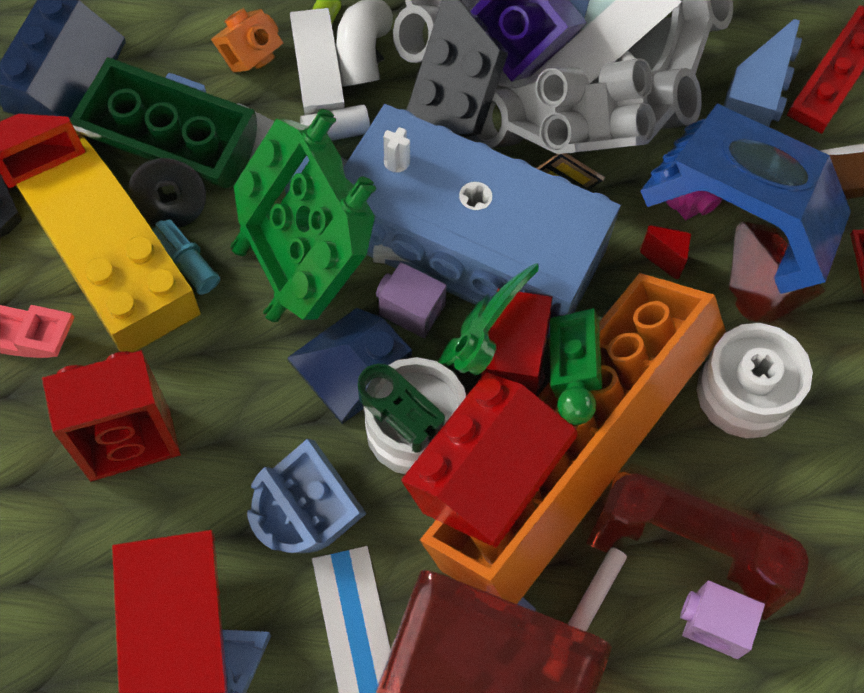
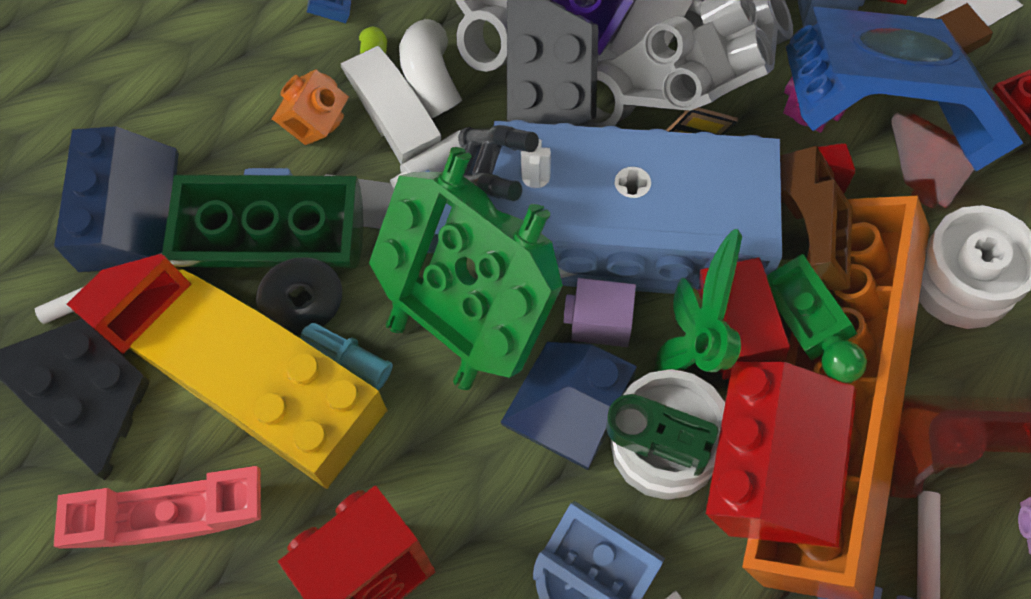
camera: 15 degrees left, 0 degrees up
(357, 128) = (484, 147): none -> black piece
(629, 282) = (814, 195): none -> reddish brown slope

